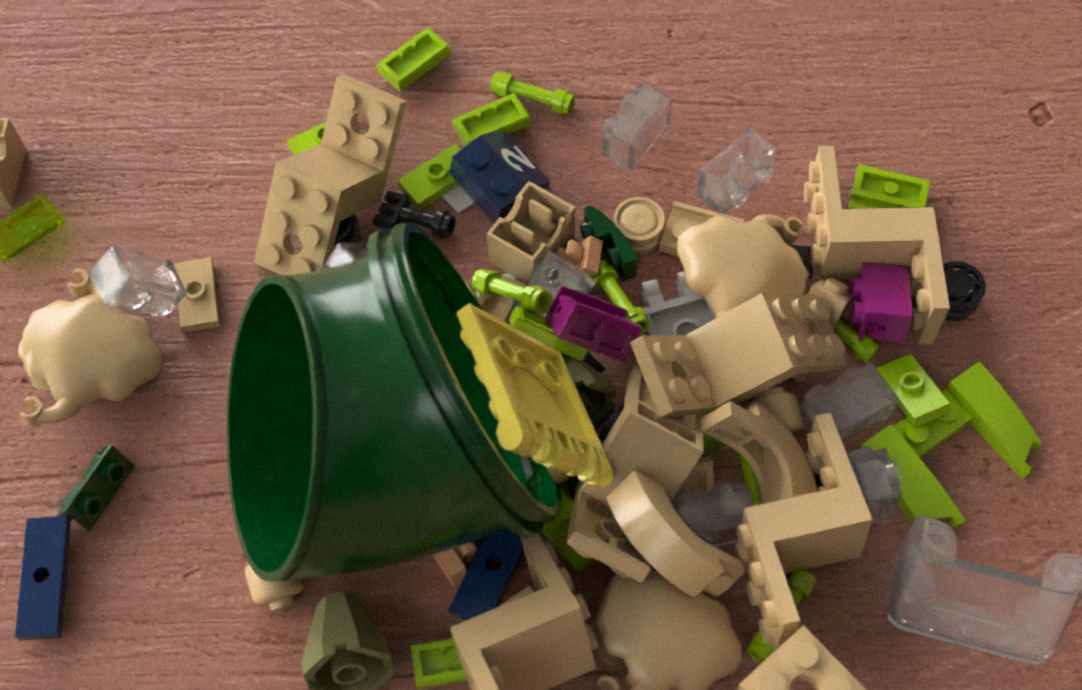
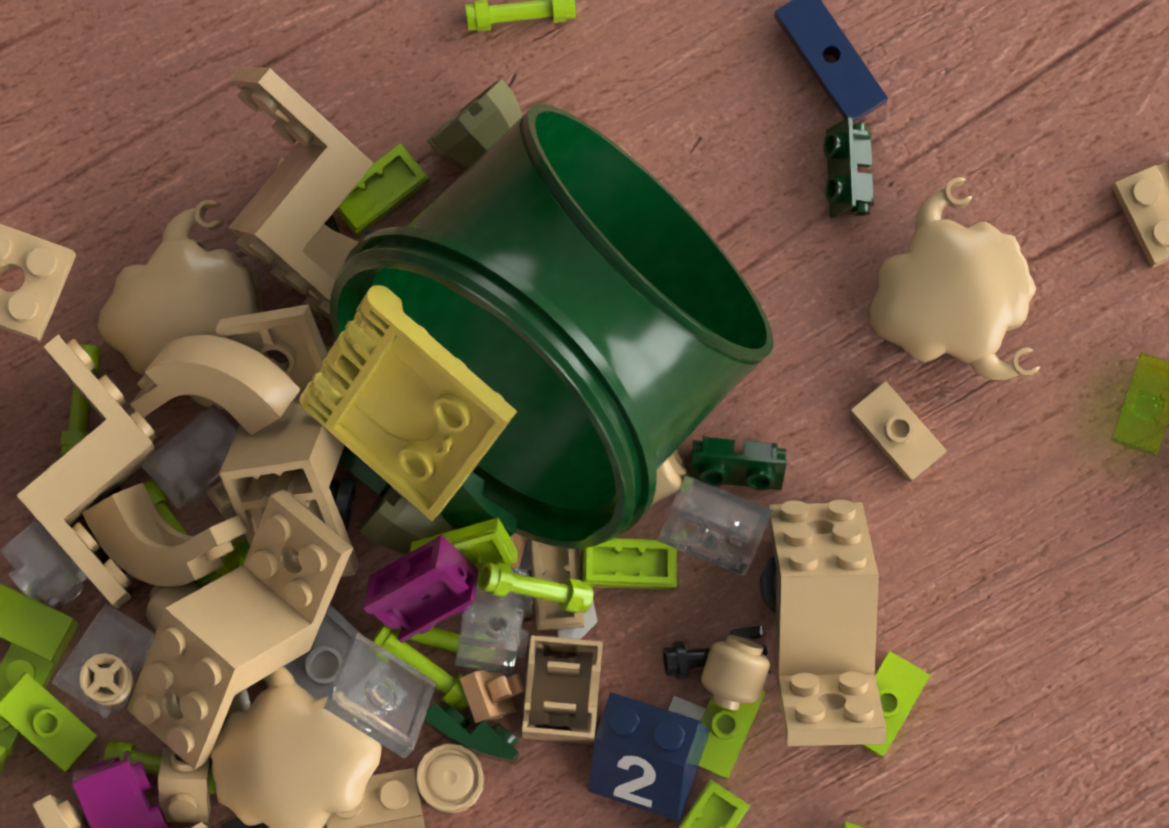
camera: 145 degrees right, 15 degrees up
(138, 282) = (953, 389): clear brick -> none
(409, 187) = (735, 672): none -> tan head
(660, 274) = (380, 695): none -> clear plate
(861, 363) = (99, 673): none -> tan wheel

